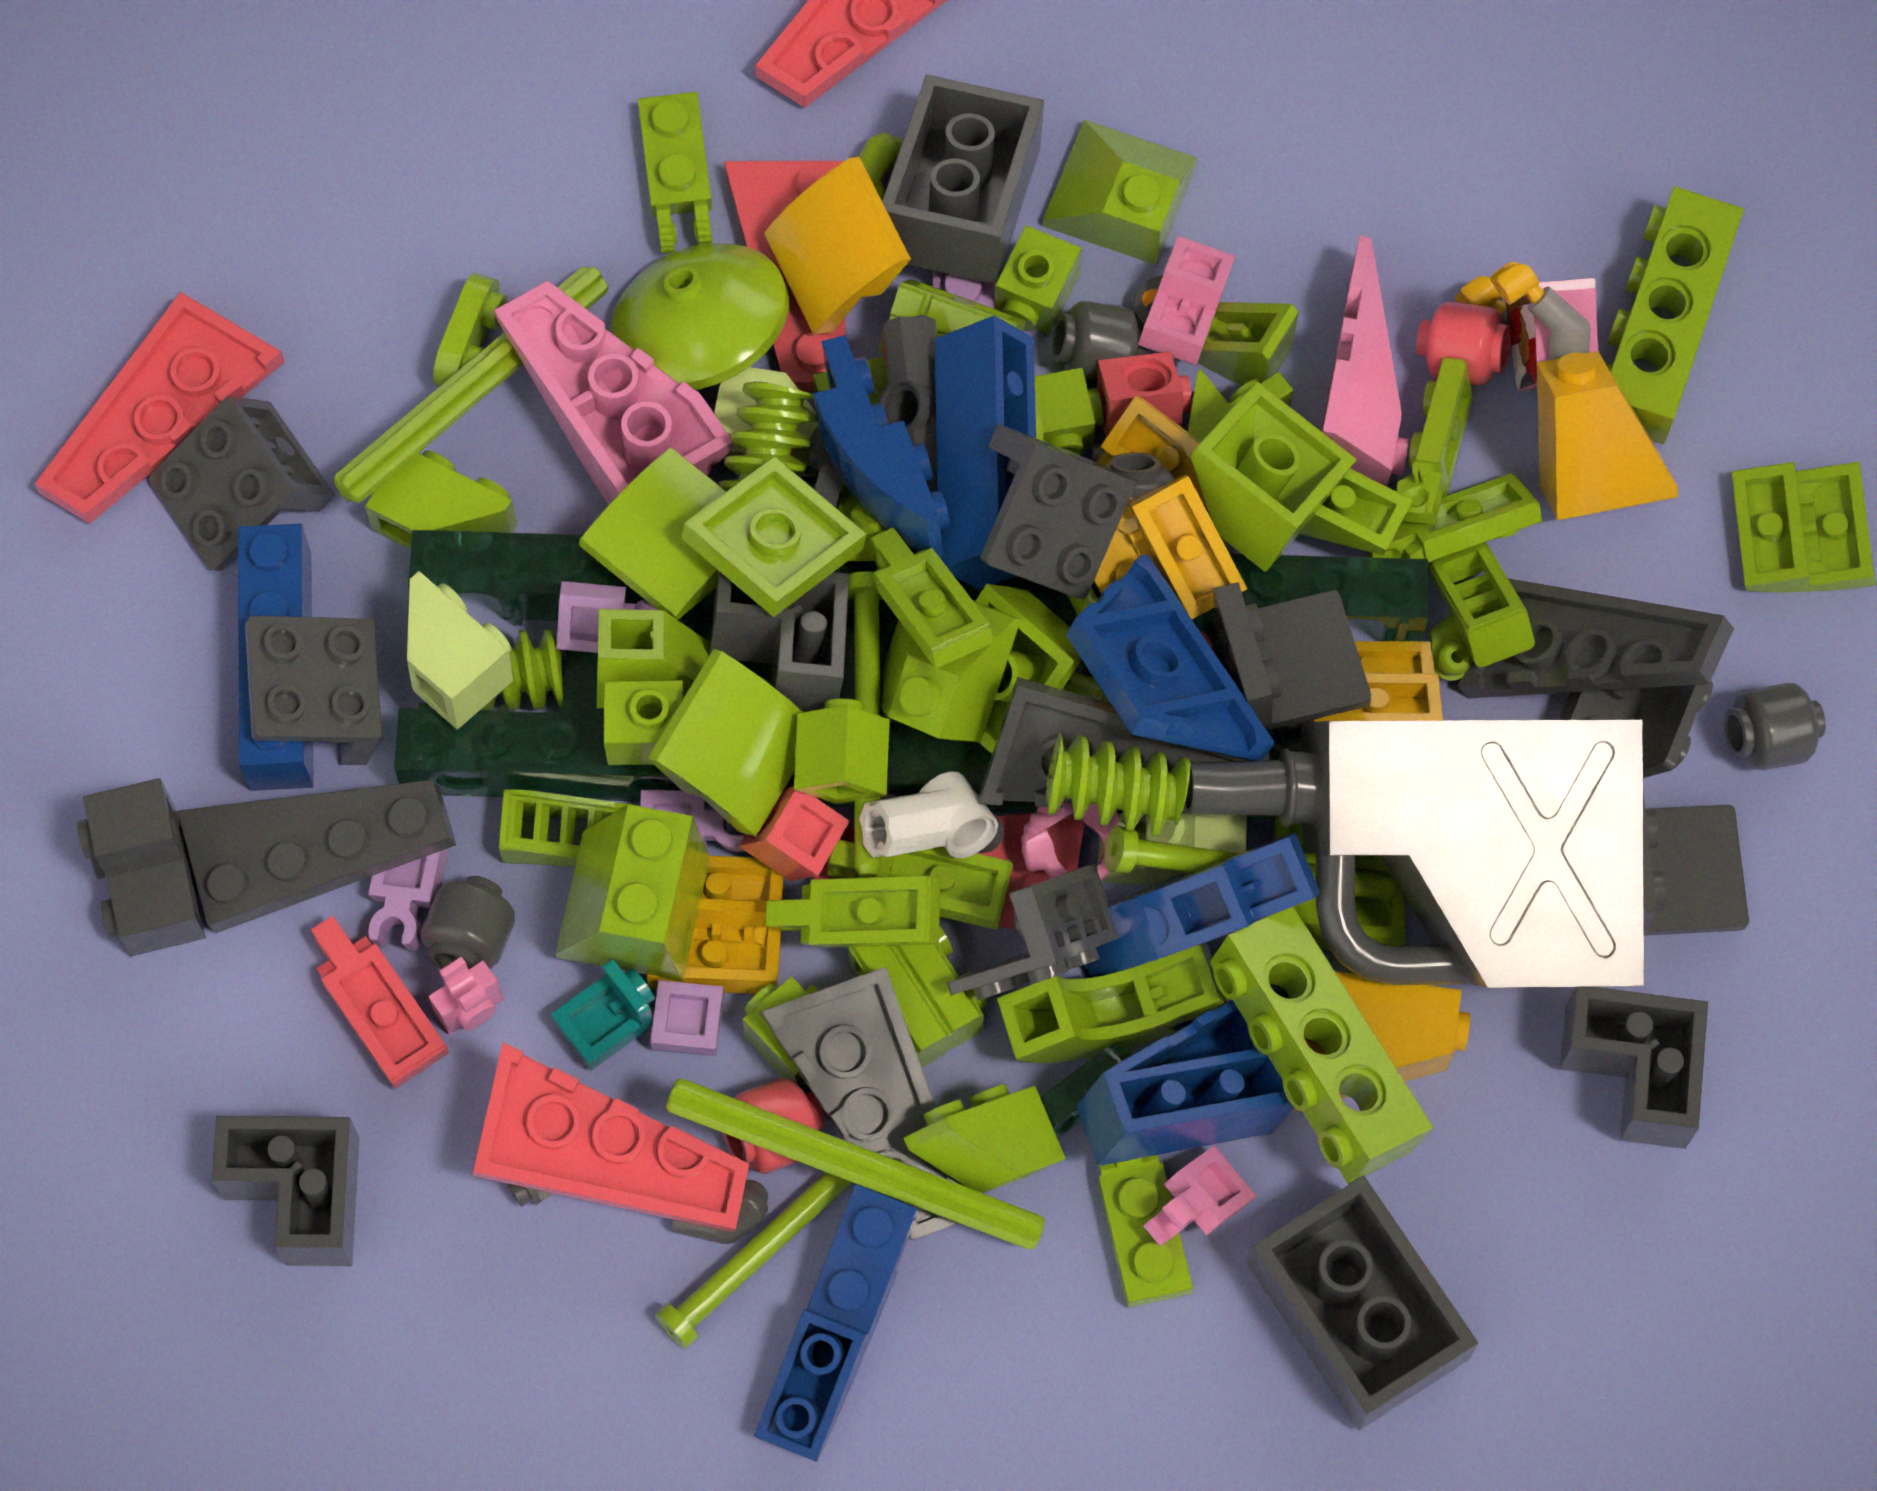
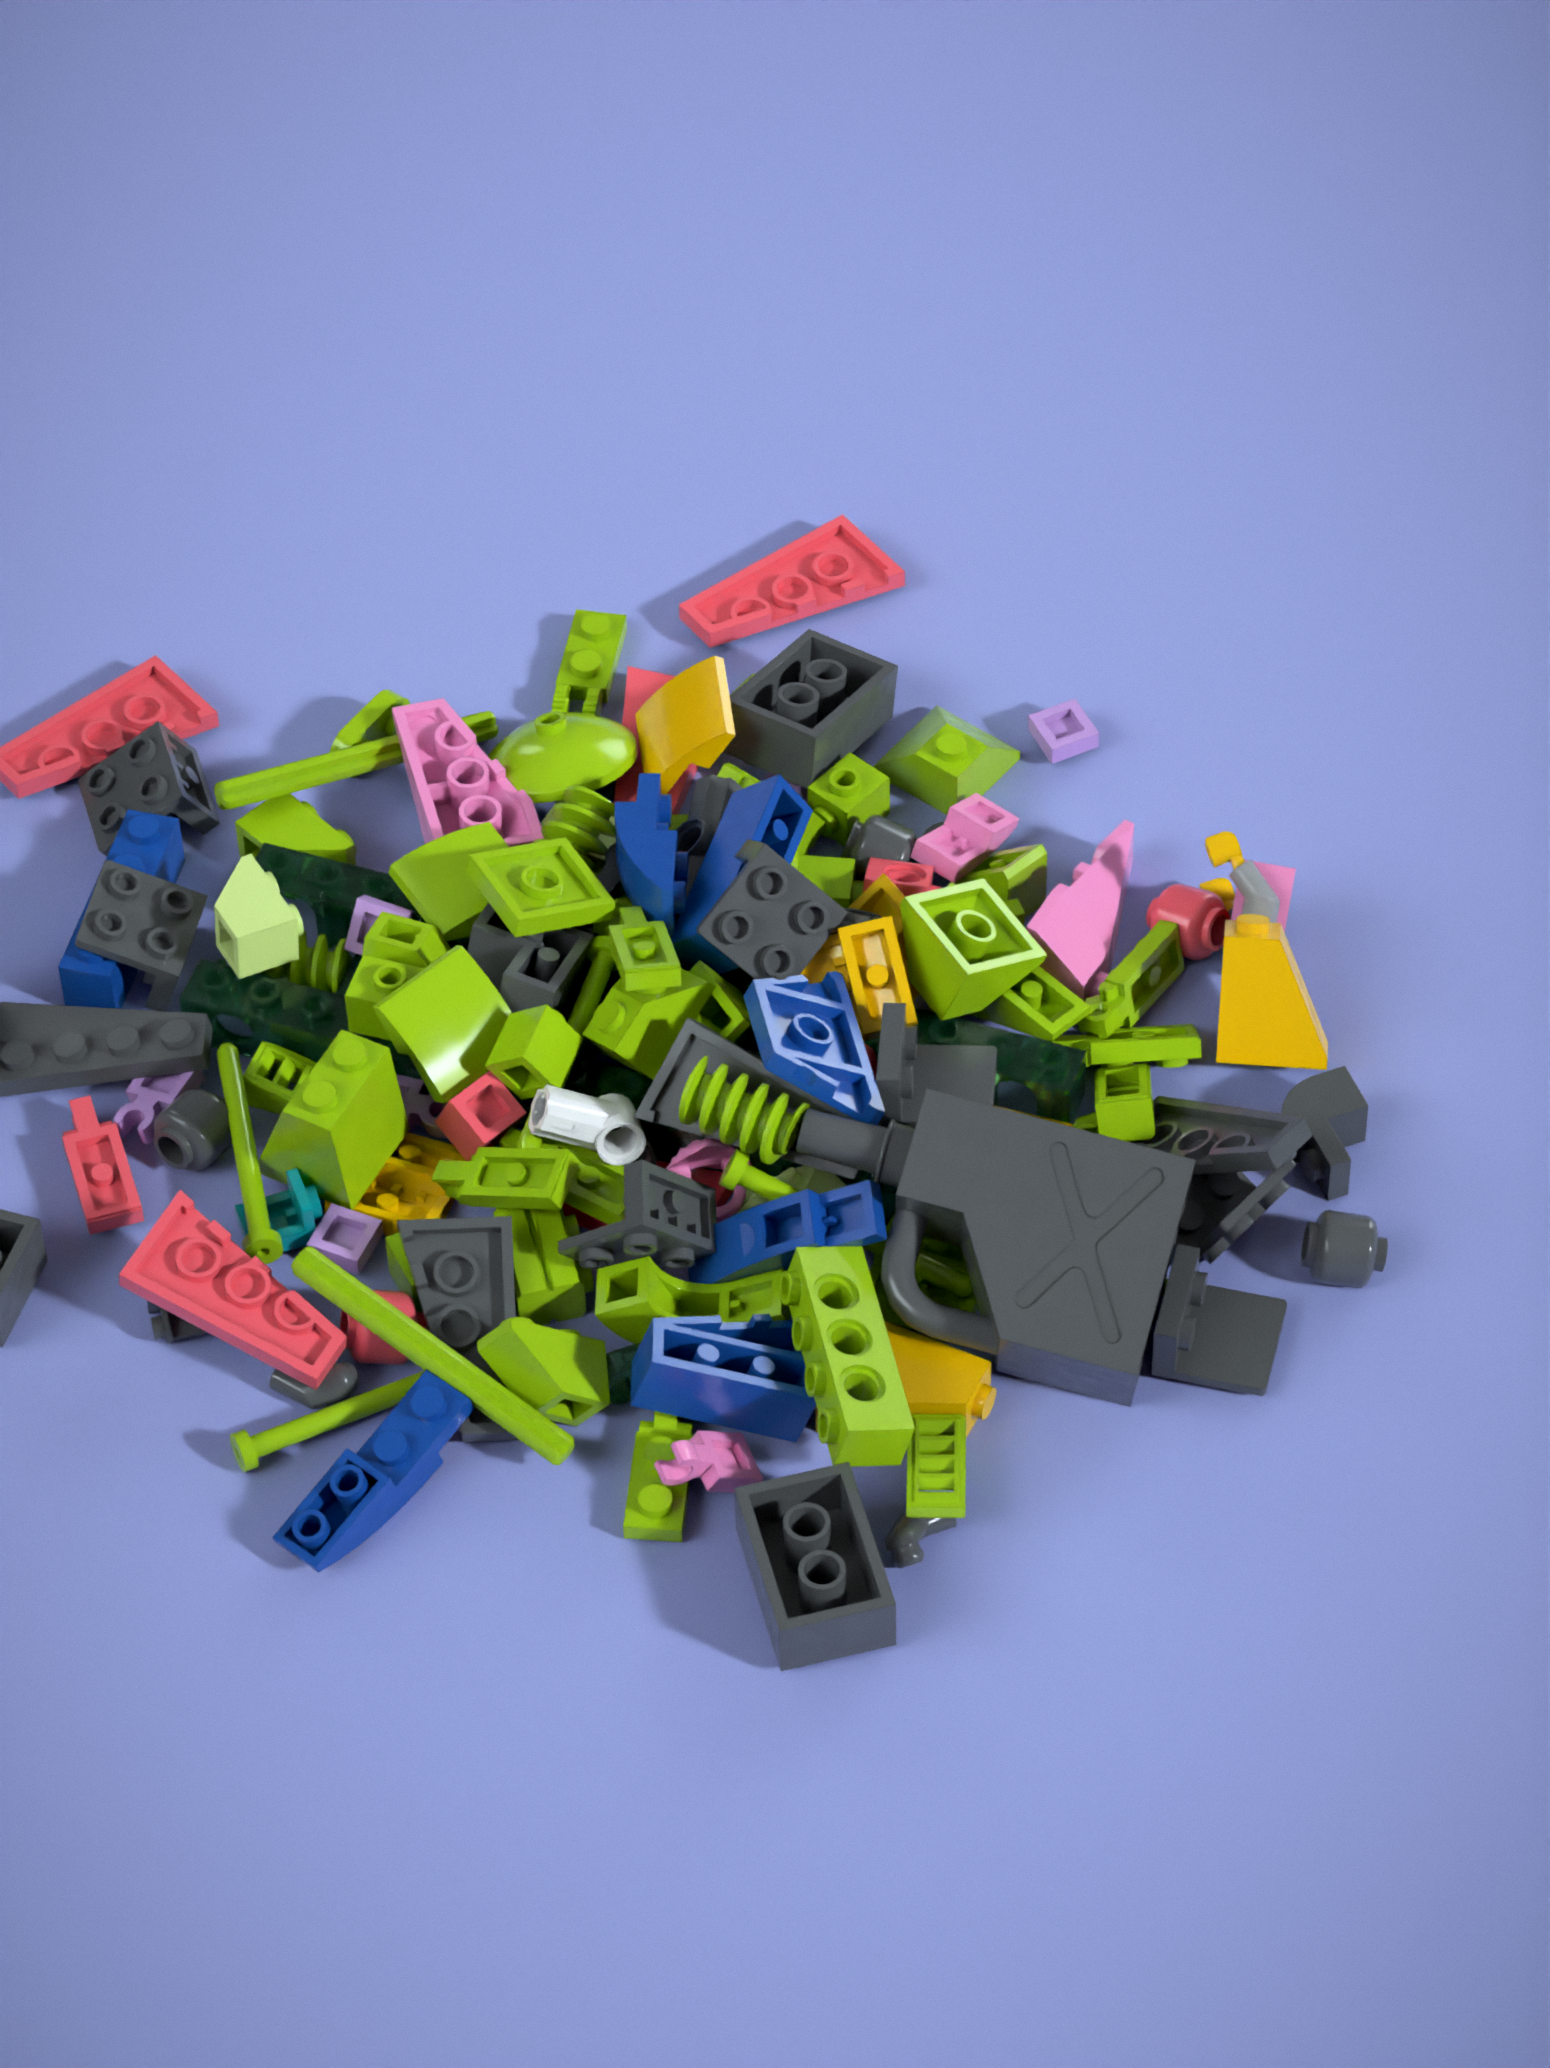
camera: 20 degrees right, 20 degrees down
(467, 996) = (170, 1171): bright pink plate -> none
(604, 1061) = (261, 1239): none -> lime bar
(1239, 121) = (1063, 731): none -> lavender plate
(1436, 1213) = (907, 1532): none -> dark grey arm
(1443, 1095) = (937, 1463): none -> lime slope
(1652, 1044) = (1133, 1444): dark grey brick -> none
(1692, 560) = (1336, 1119): none -> dark grey brick
(1704, 234) = (1377, 936): lime brick -> none
(1803, 528) = (1430, 1122): lime slope -> none

